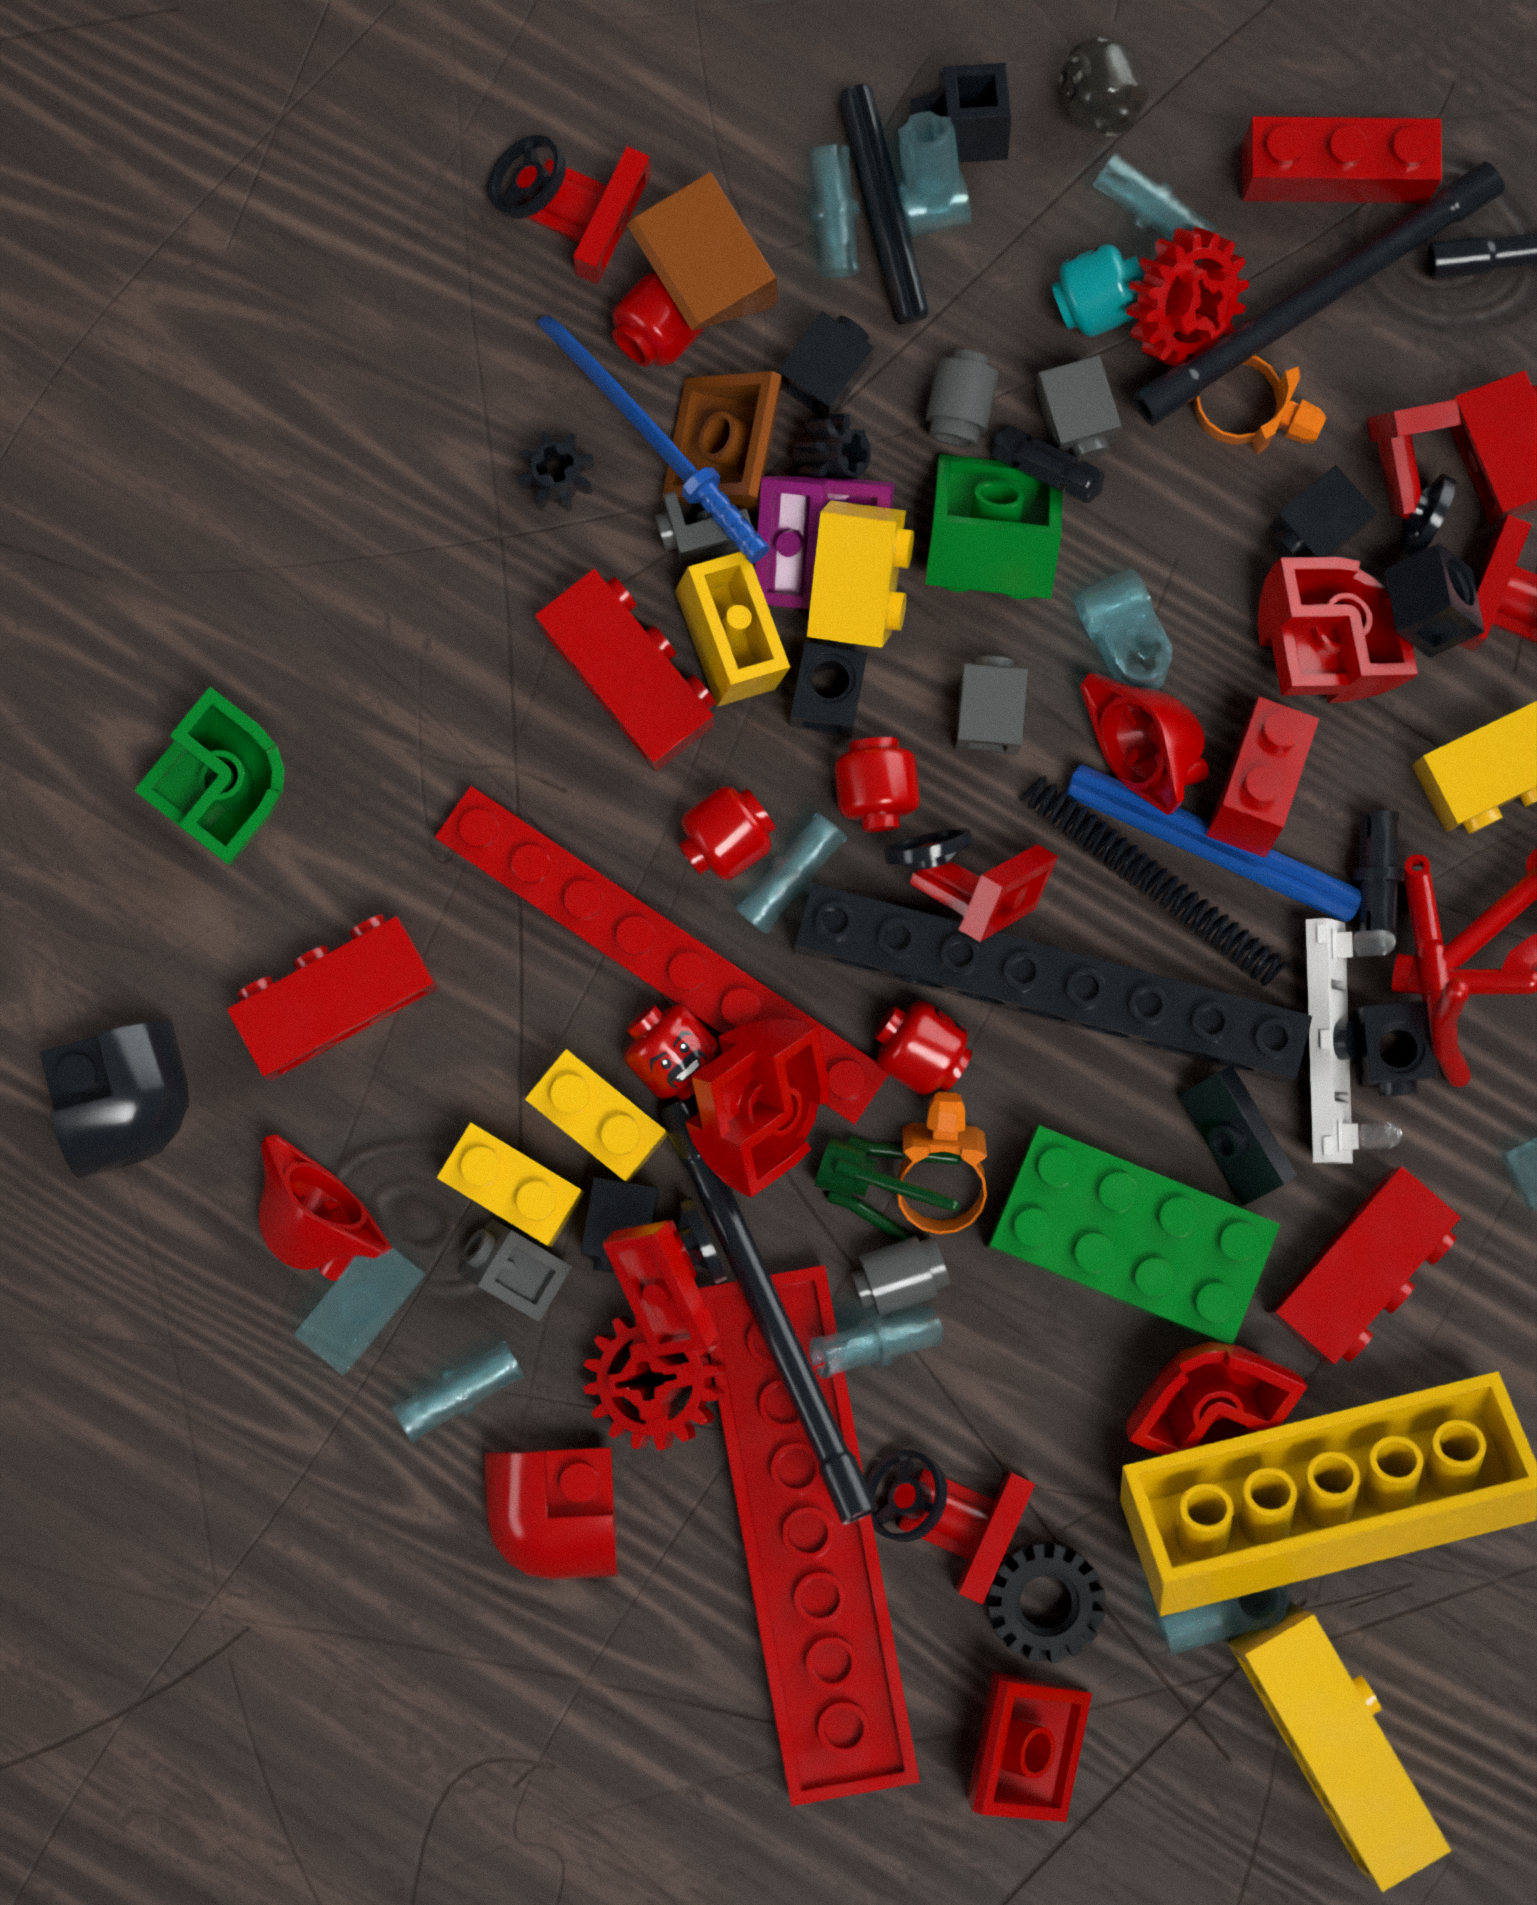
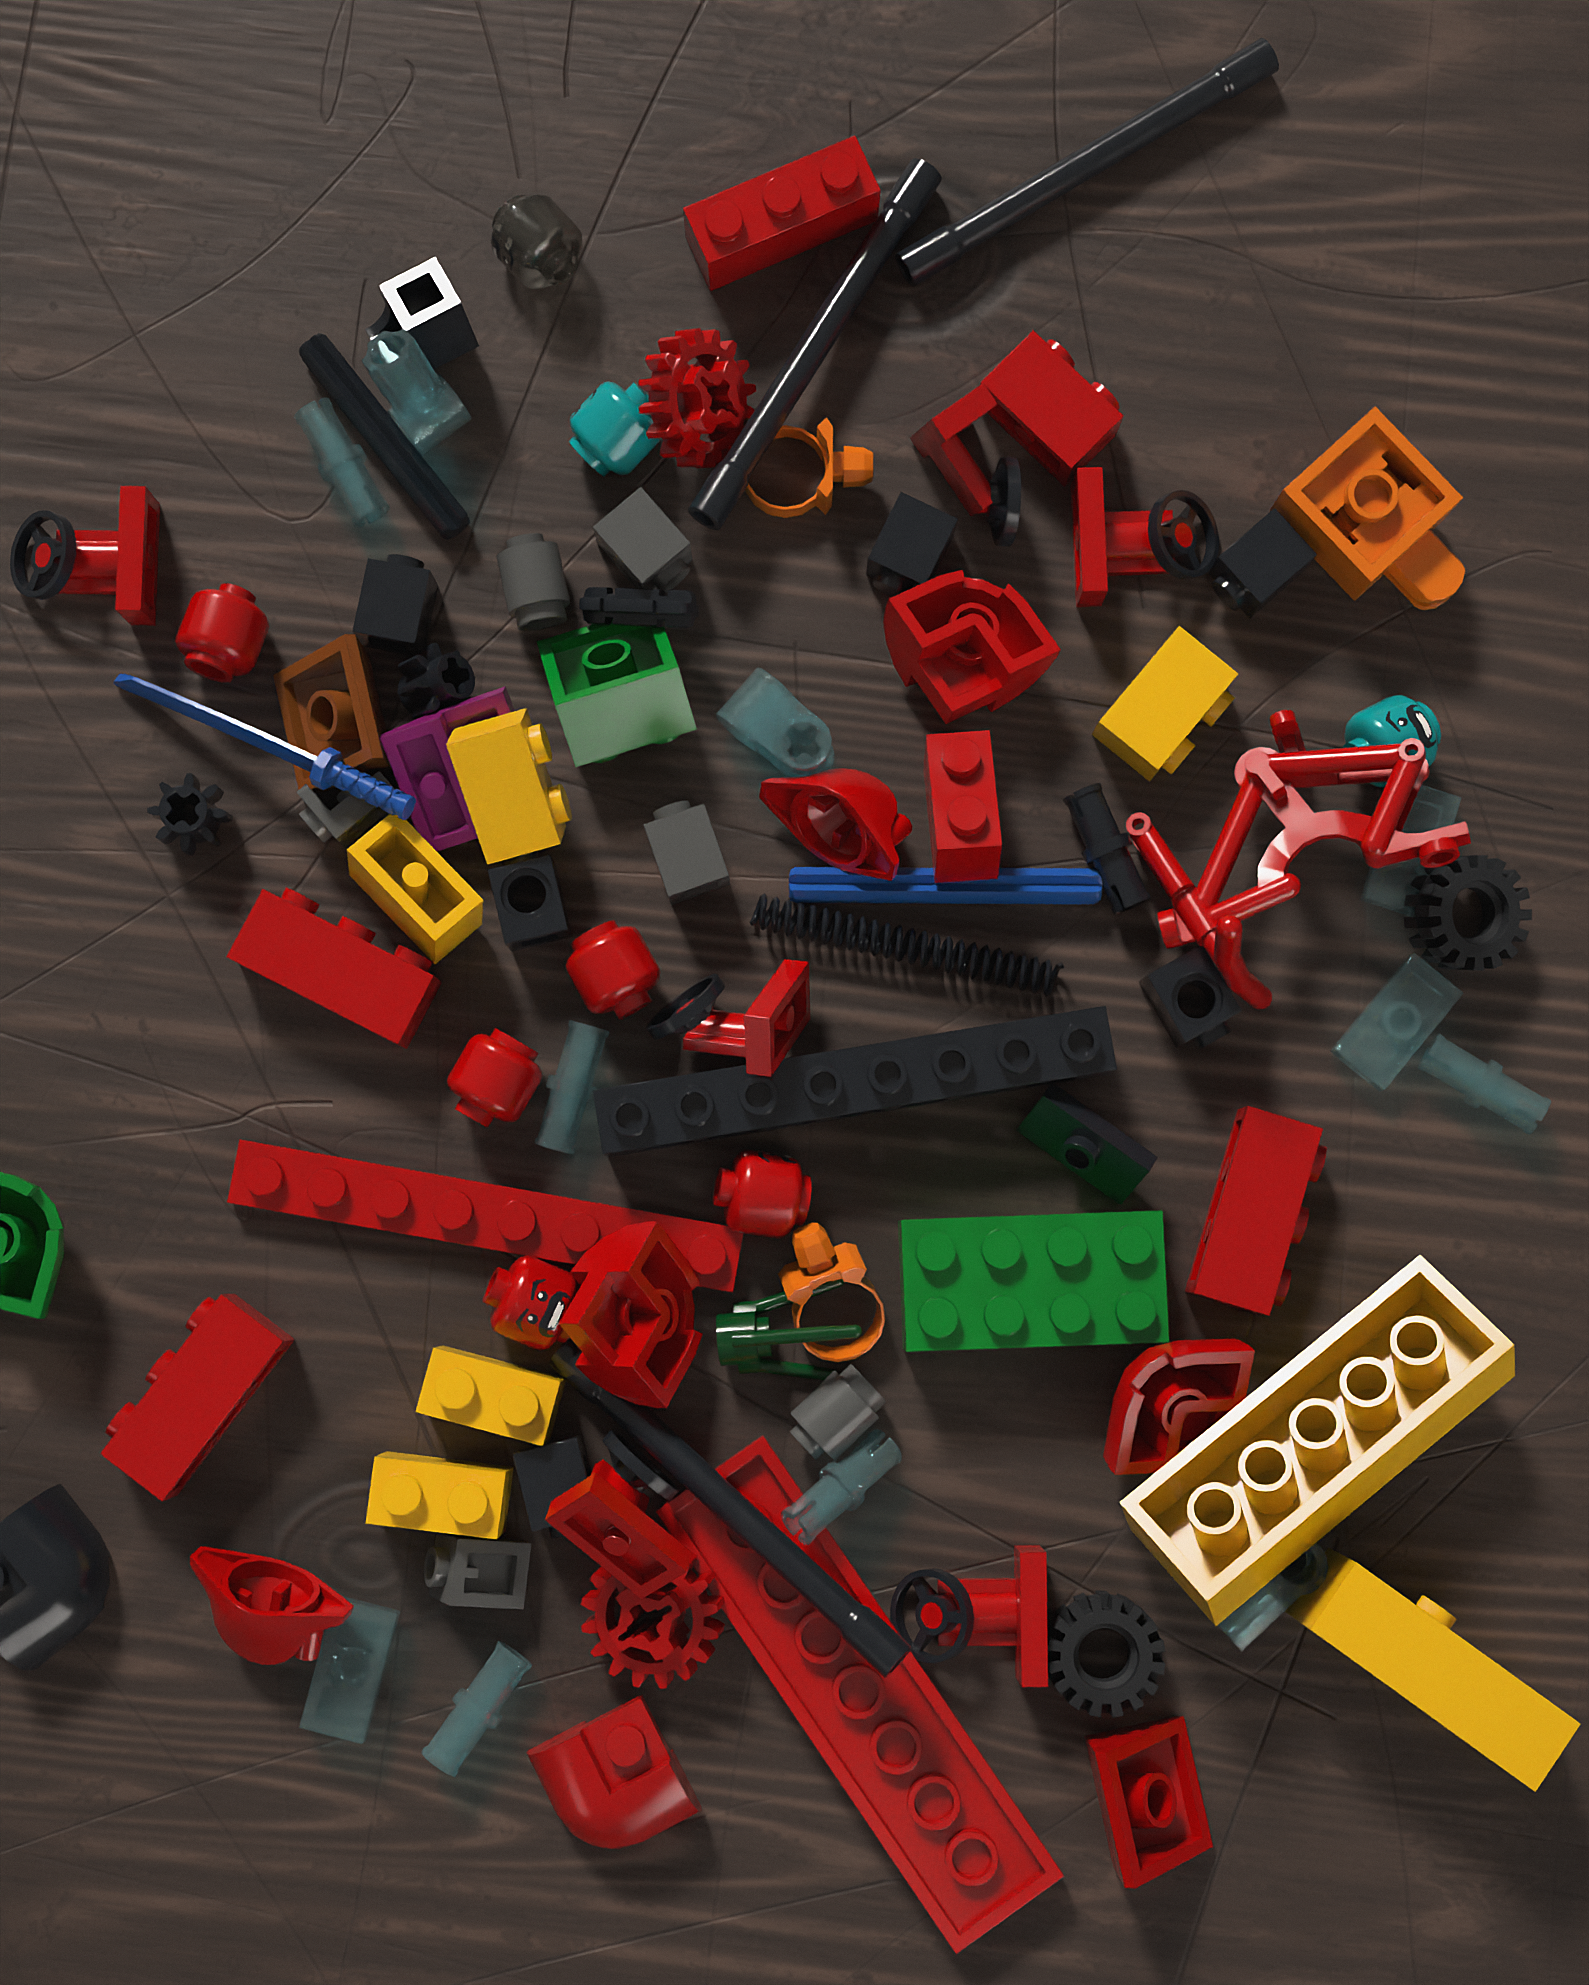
camera: 25 degrees left, 0 degrees up
(705, 255) = (237, 555): dark orange slope -> none
(1148, 200) = (622, 326): clear light blue pin -> none
(1336, 1041) = (1137, 1017): white piece -> none
(1434, 600) = (1045, 575): black brick -> none

